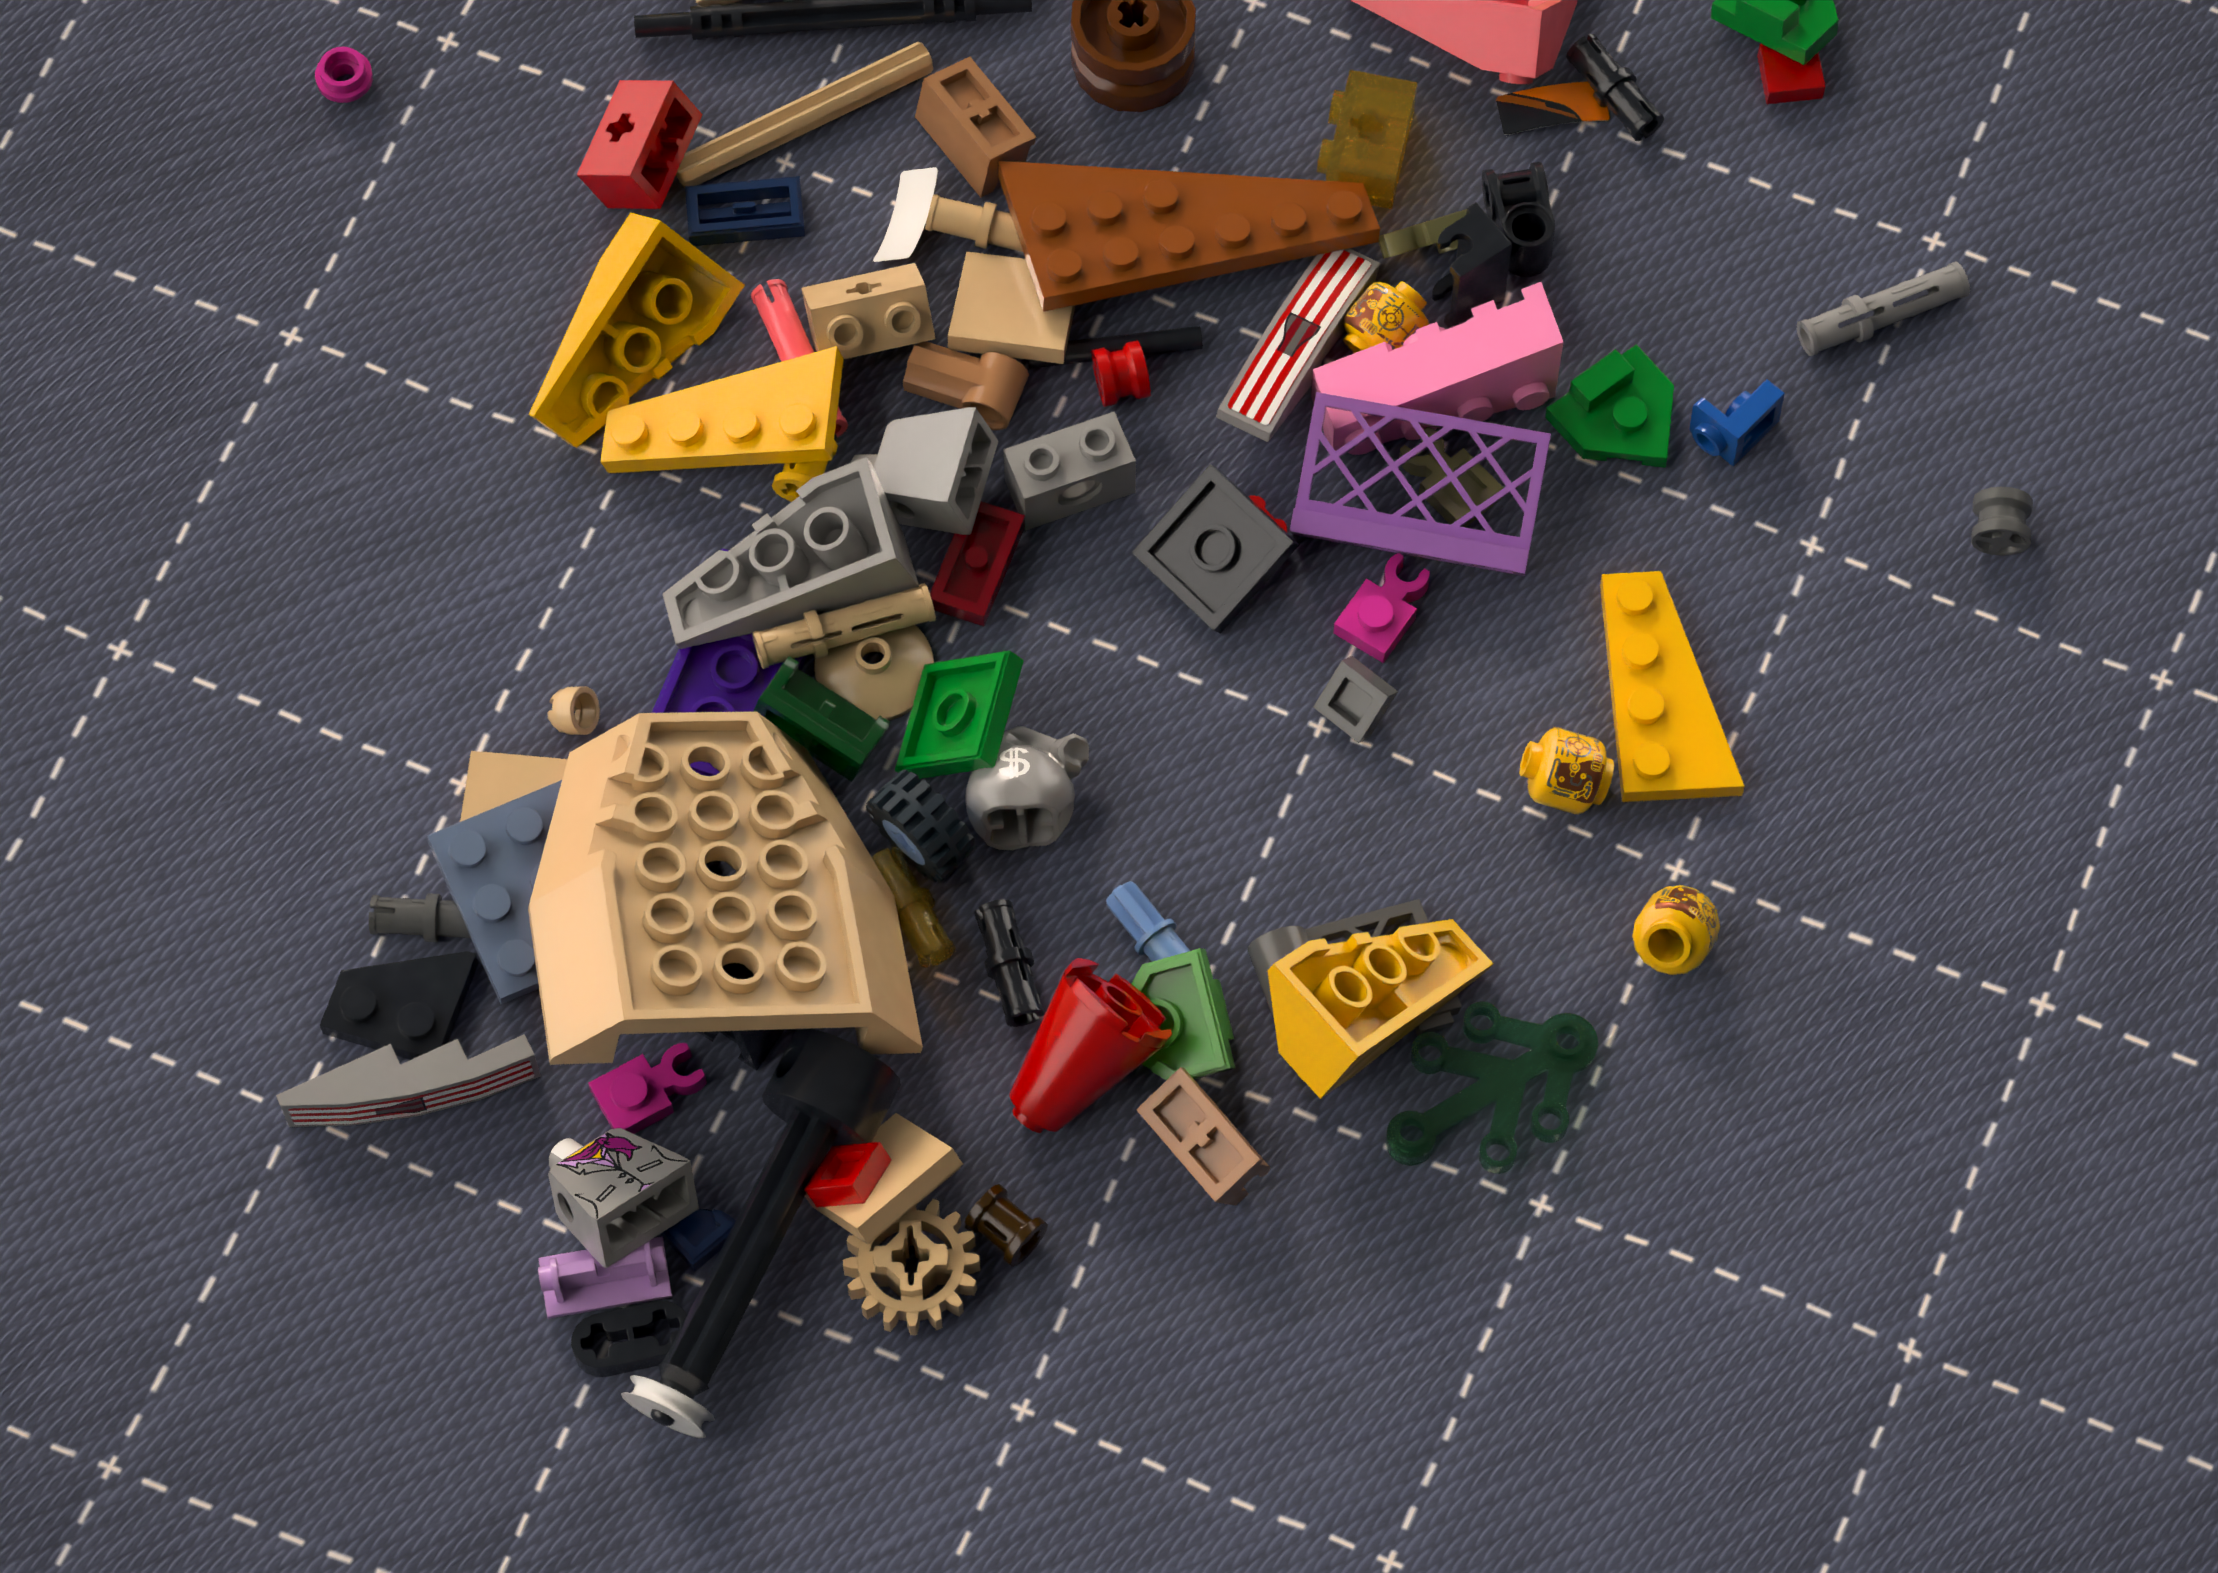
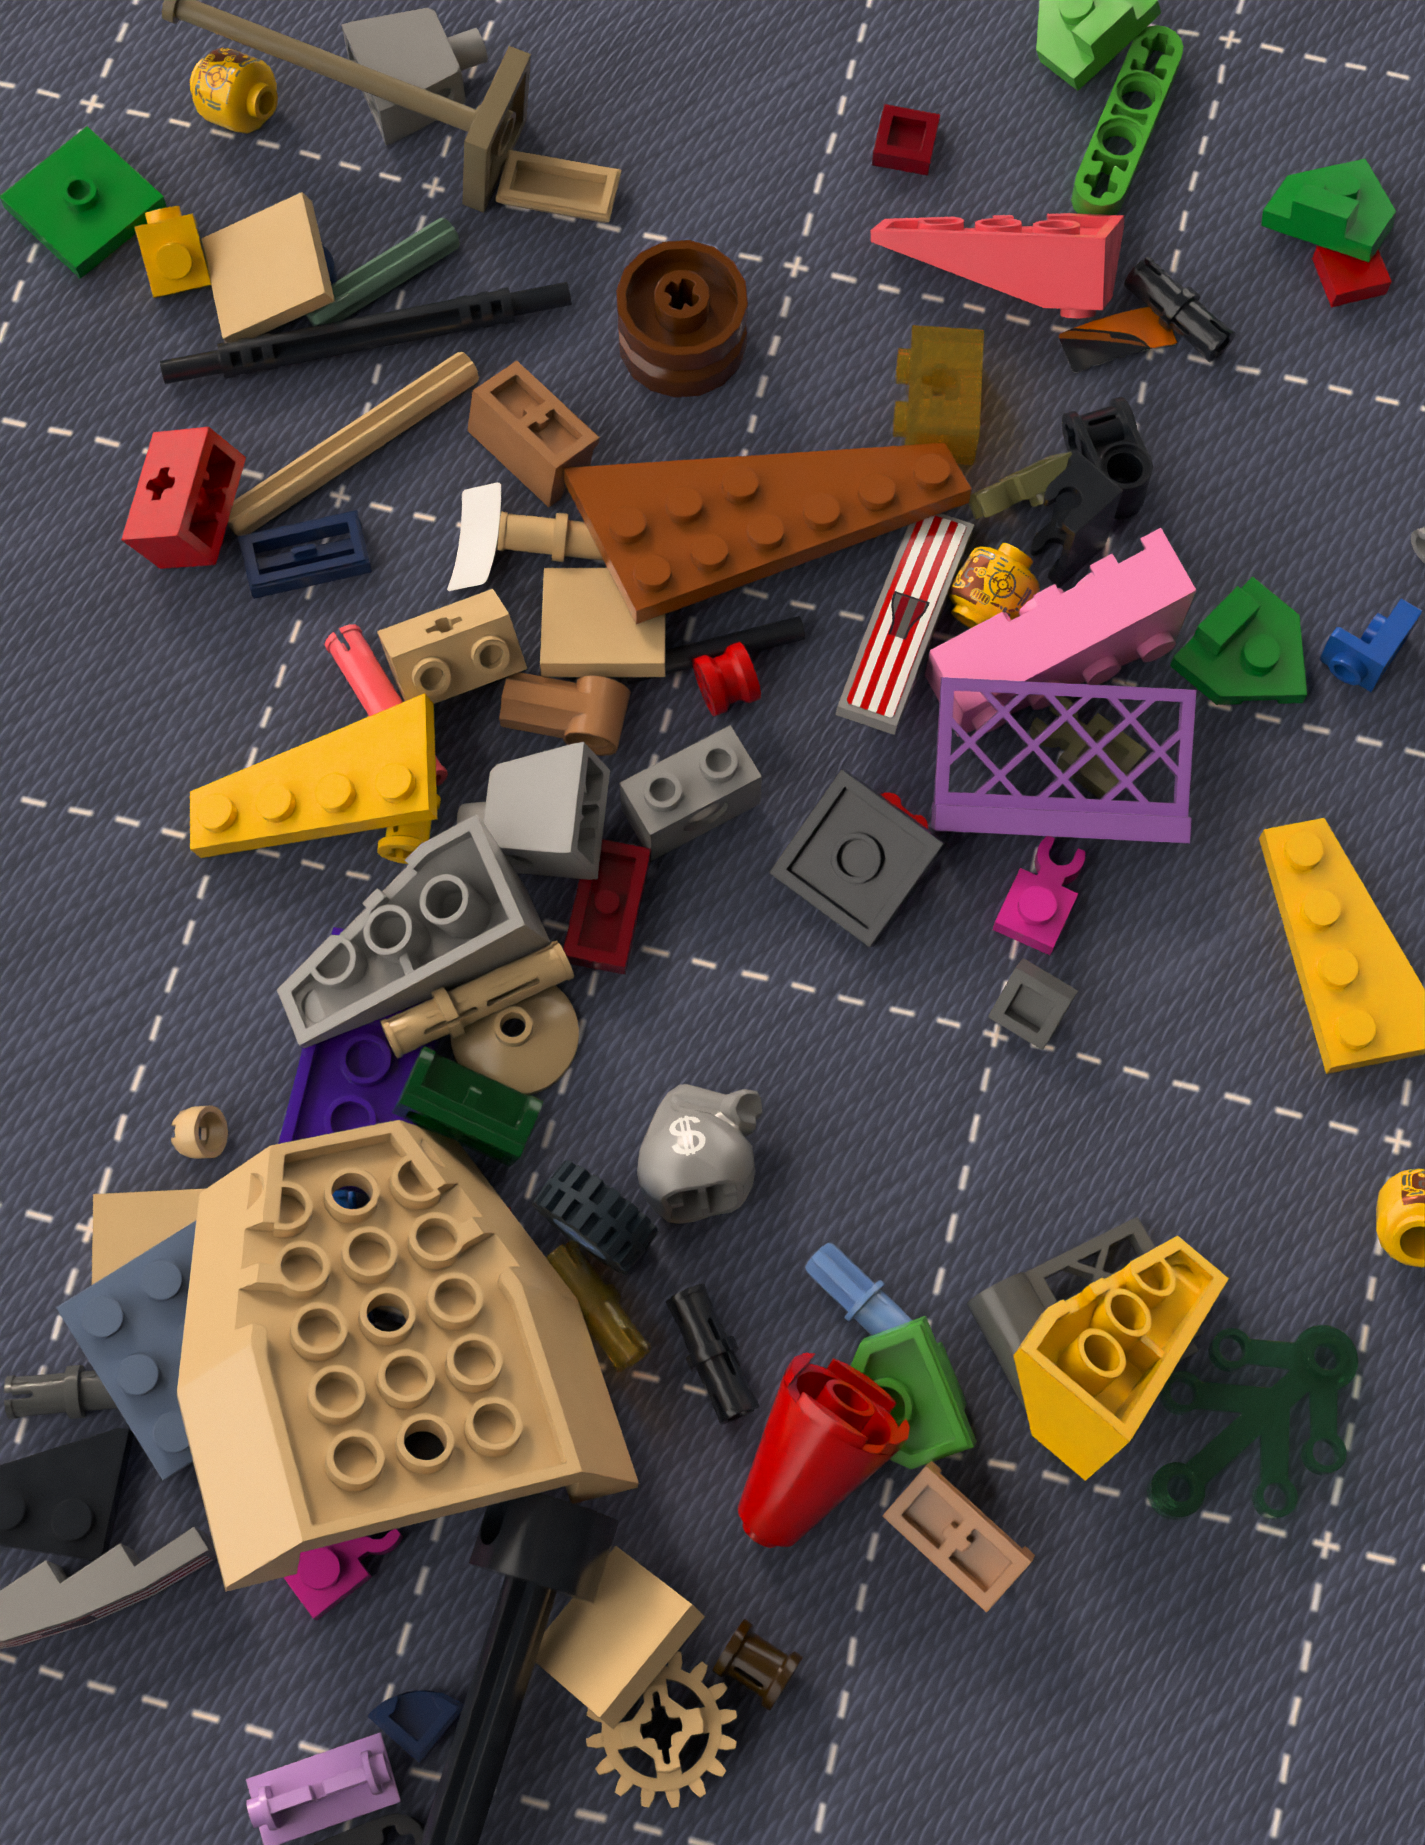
camera: 10 degrees left, 5 degrees up
(619, 1191) = (324, 1699): light grey torso -> none
(636, 317) = (205, 686): yellow wedge -> none
(848, 1174) = (577, 1641): red tile -> none
(959, 715) = (617, 1084): green plate -> none
(1567, 770) = (1270, 1053): yellow head -> none

